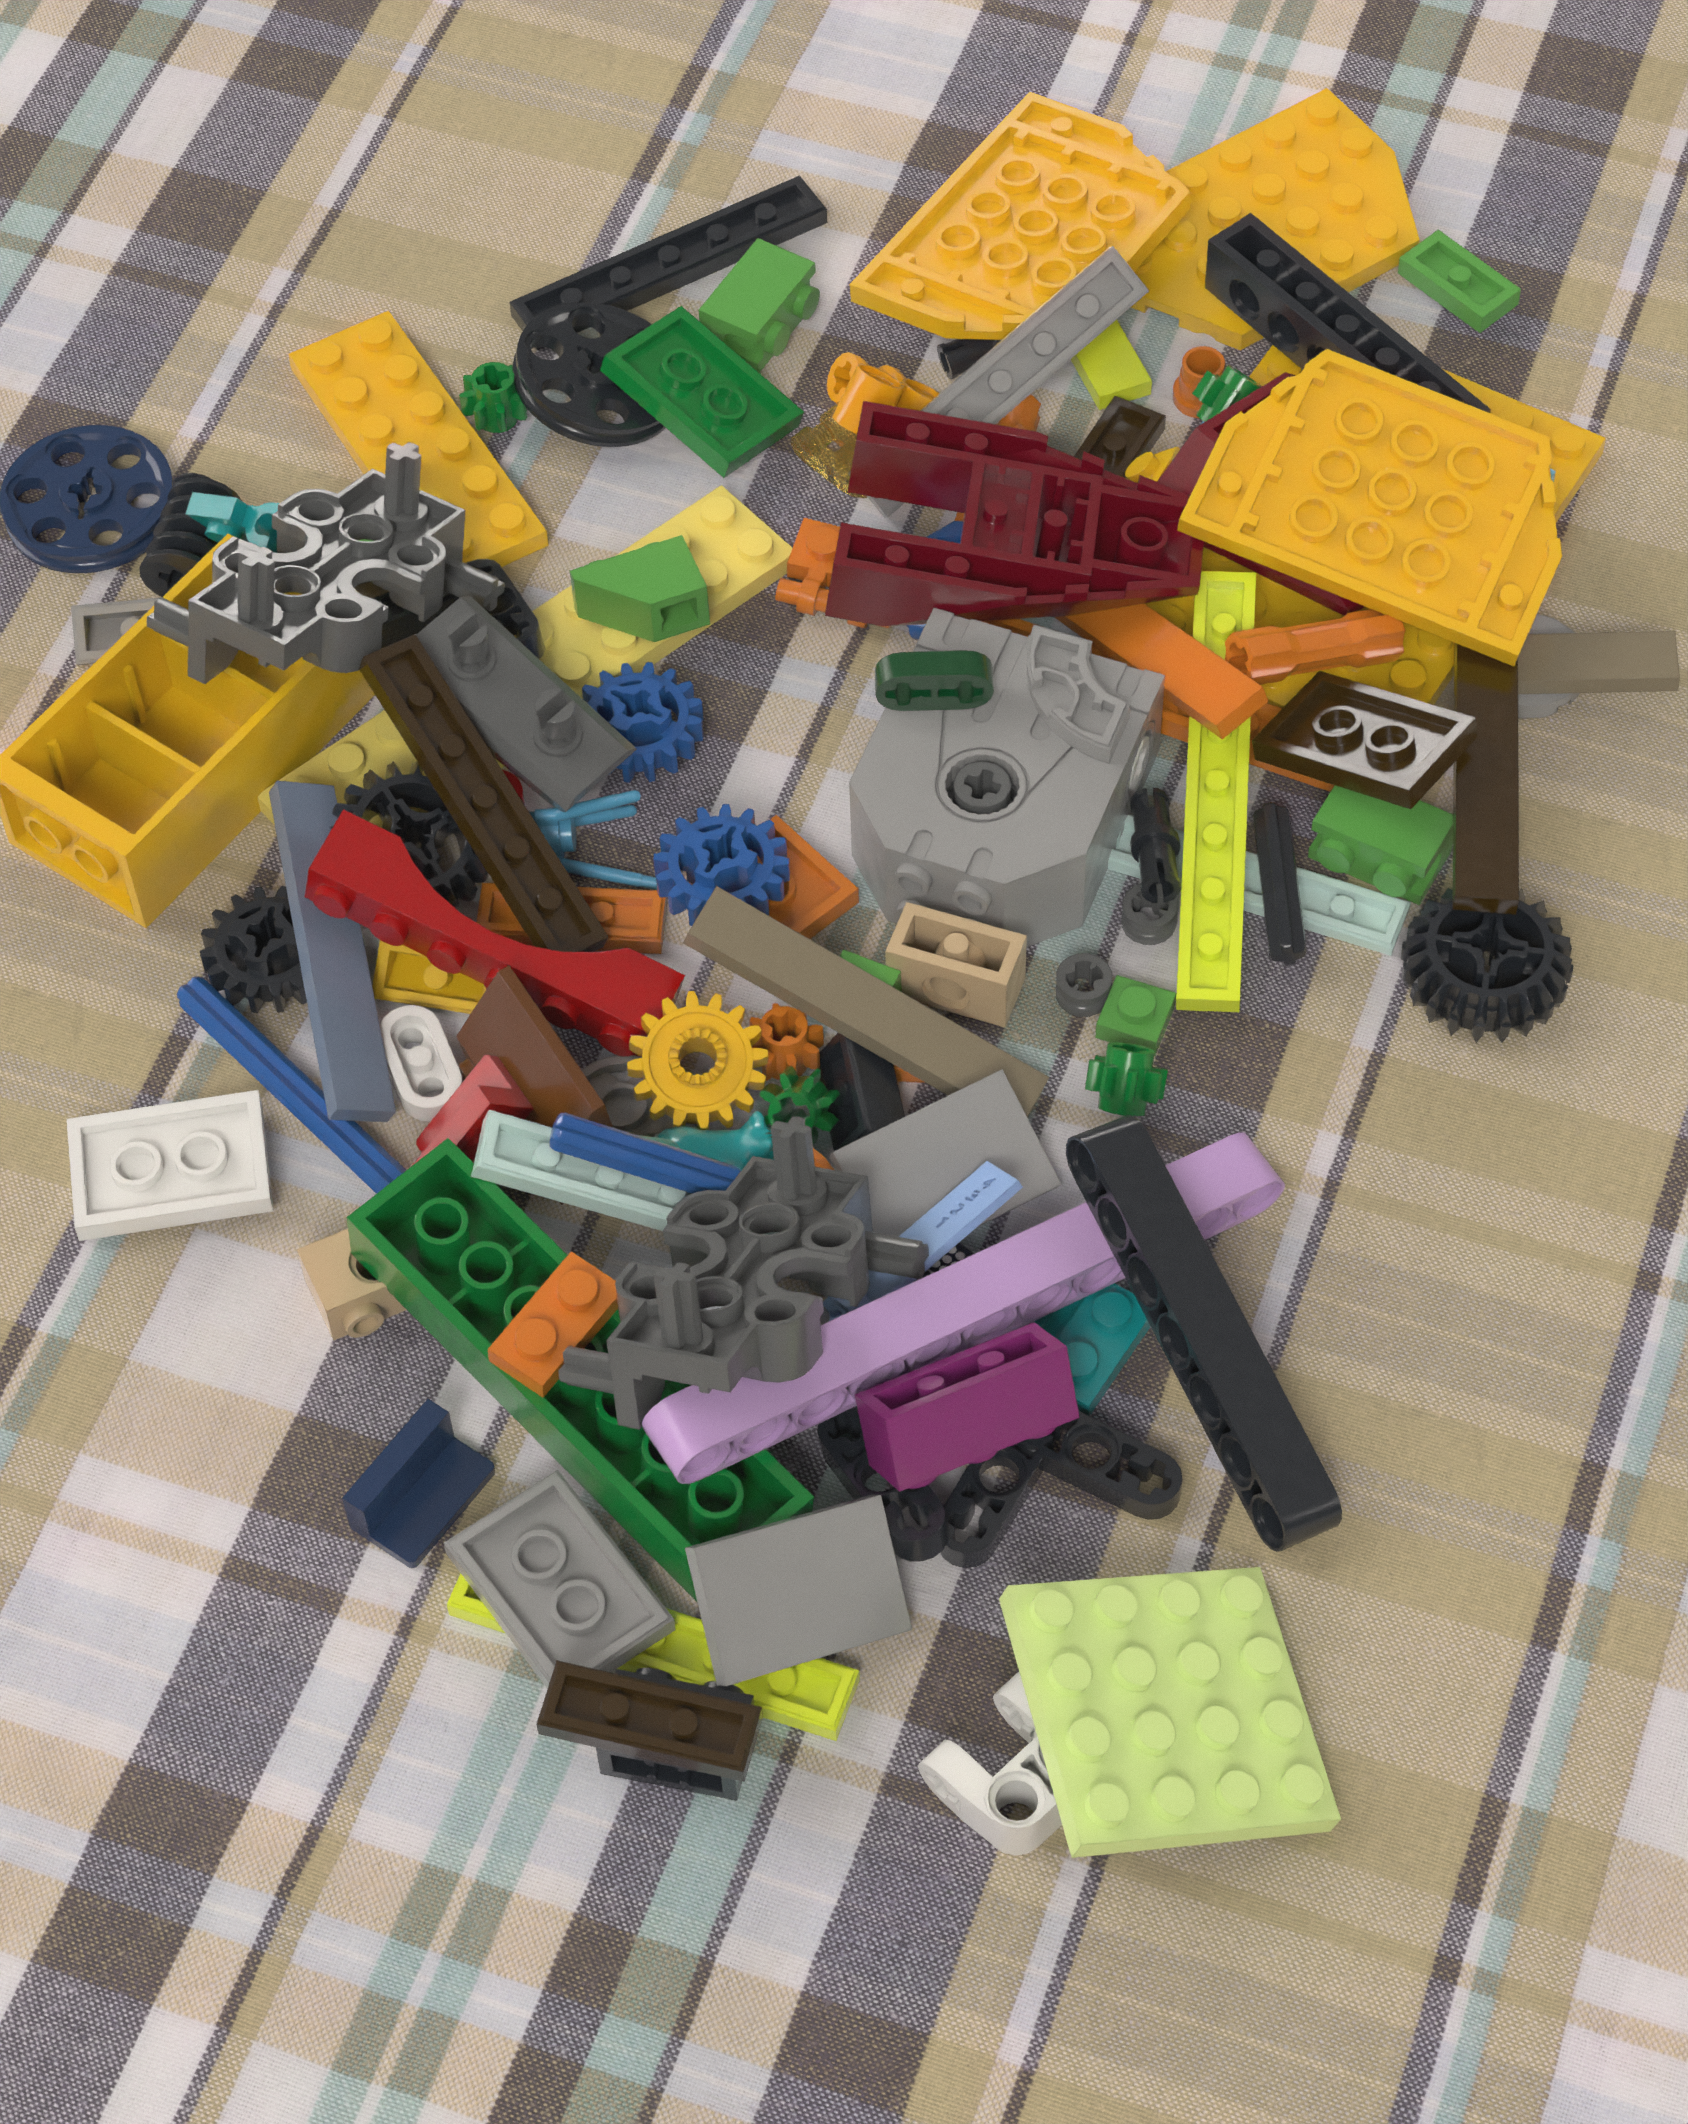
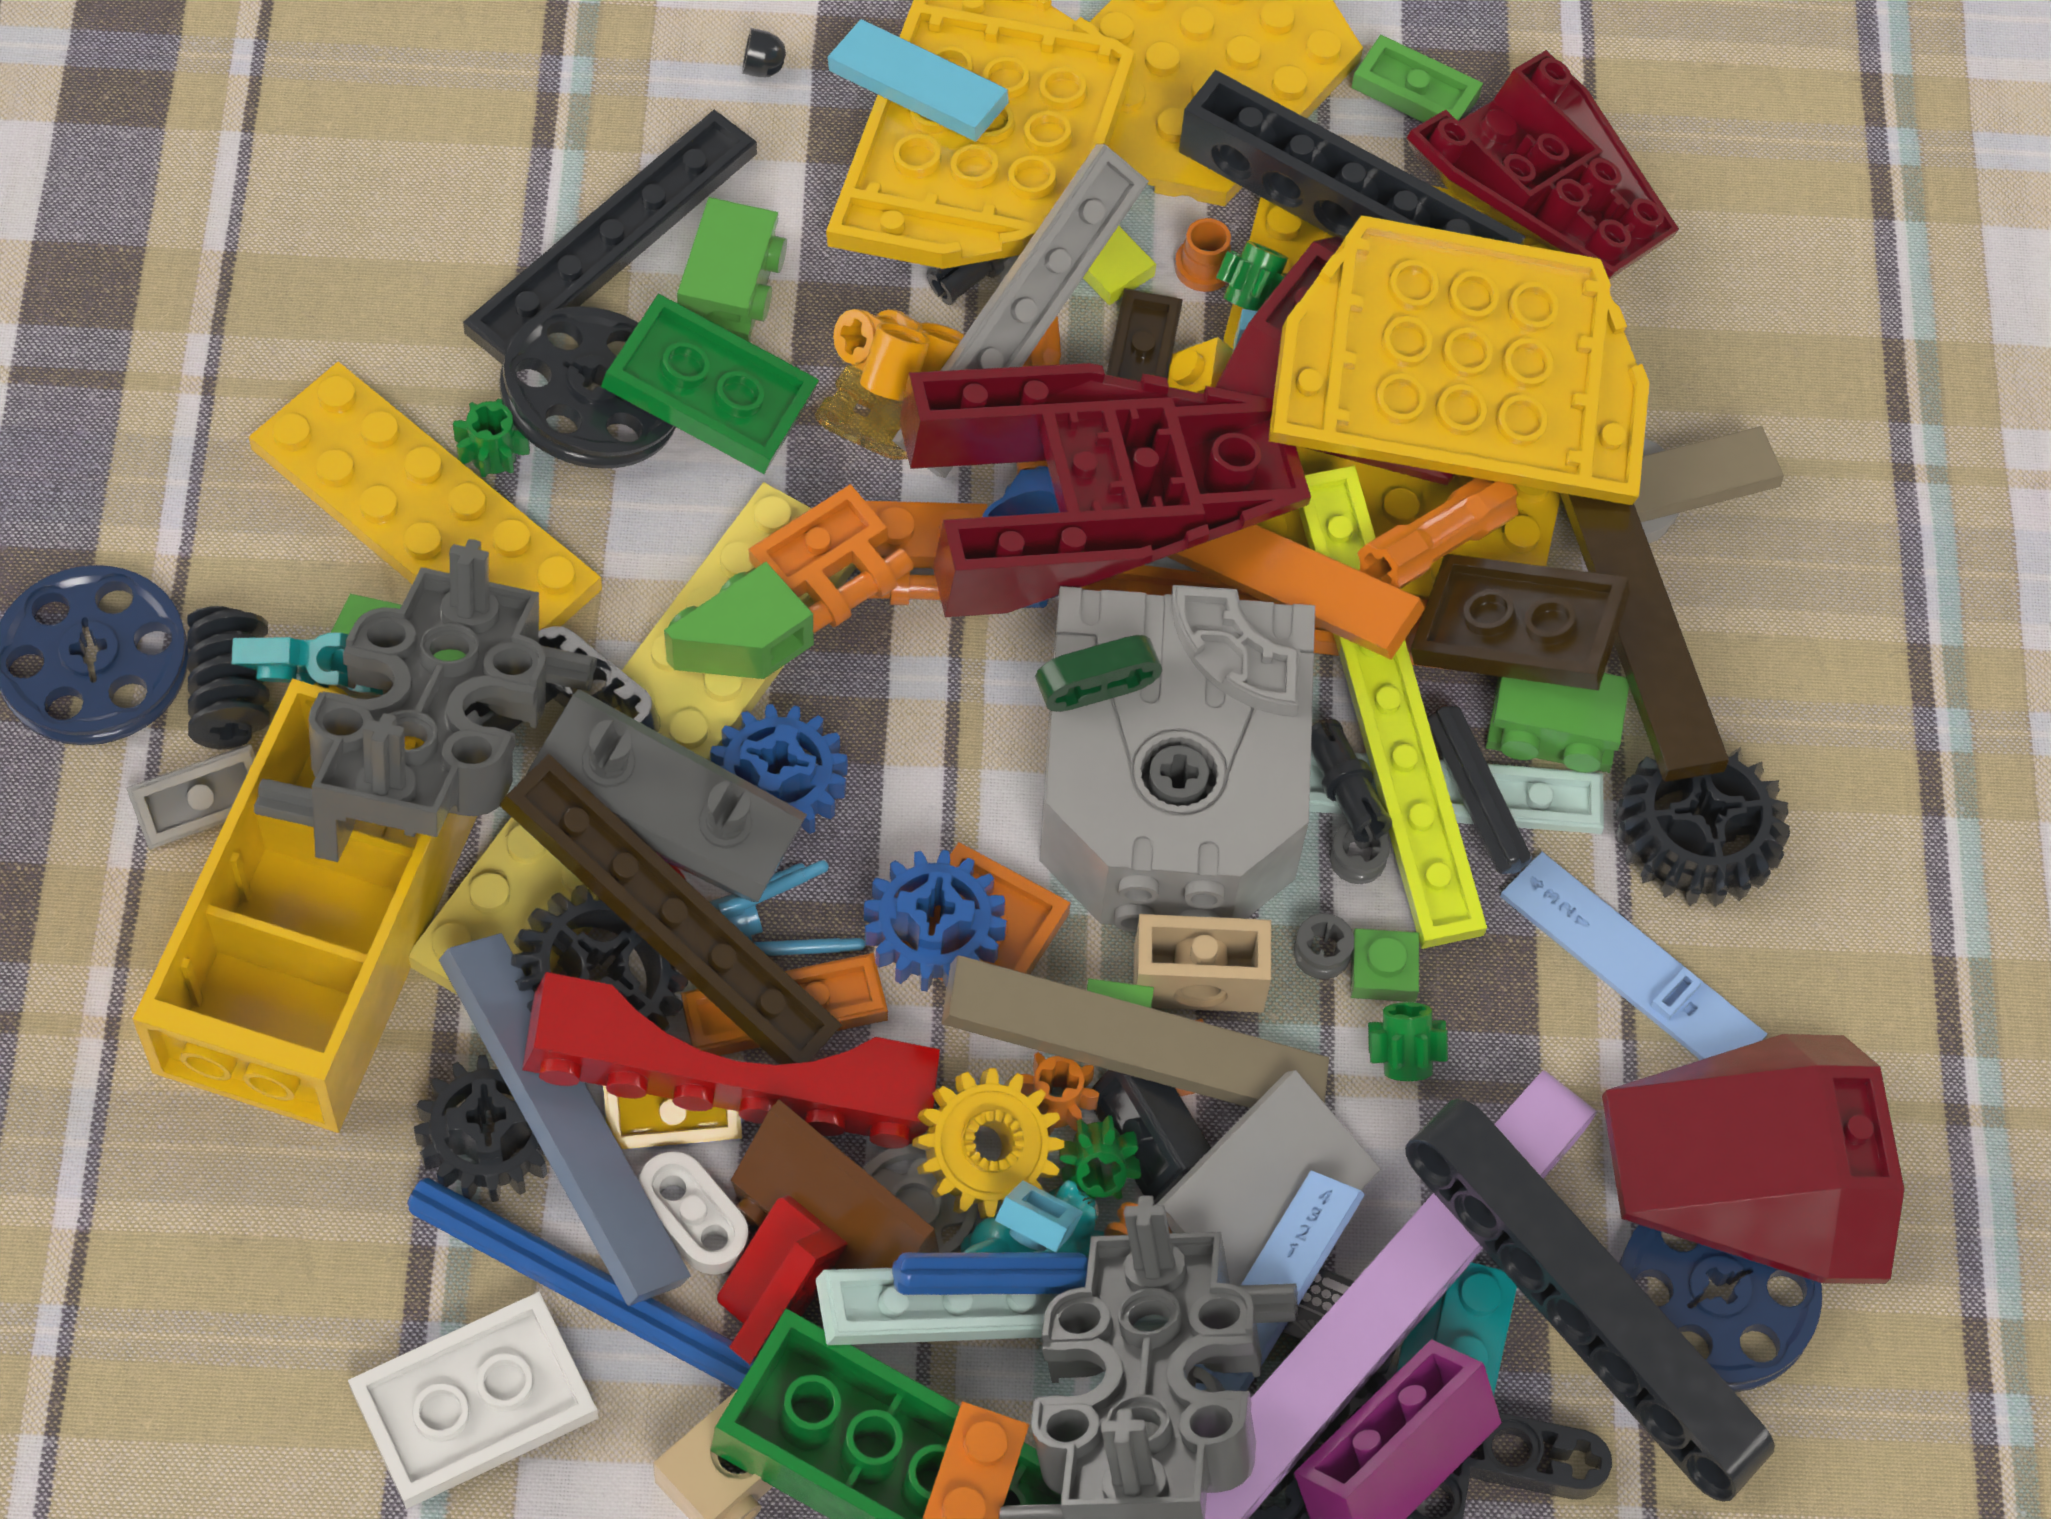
camera: 25 degrees left, 5 degrees up
(711, 1129) = (1038, 1217): none -> medium azure plate
(745, 539) = (825, 542): none -> orange plate
(860, 139) = (763, 54): none -> black hinge
(981, 176) = (918, 80): none -> medium azure tile
(1375, 1361) = (1723, 1323): none -> dark blue wedge
(1377, 1075) = (1628, 960): none -> light blue piece
(1426, 1260) = (1766, 1157): none -> dark red wedge
(1550, 368) = (1548, 168): none -> dark red wedge

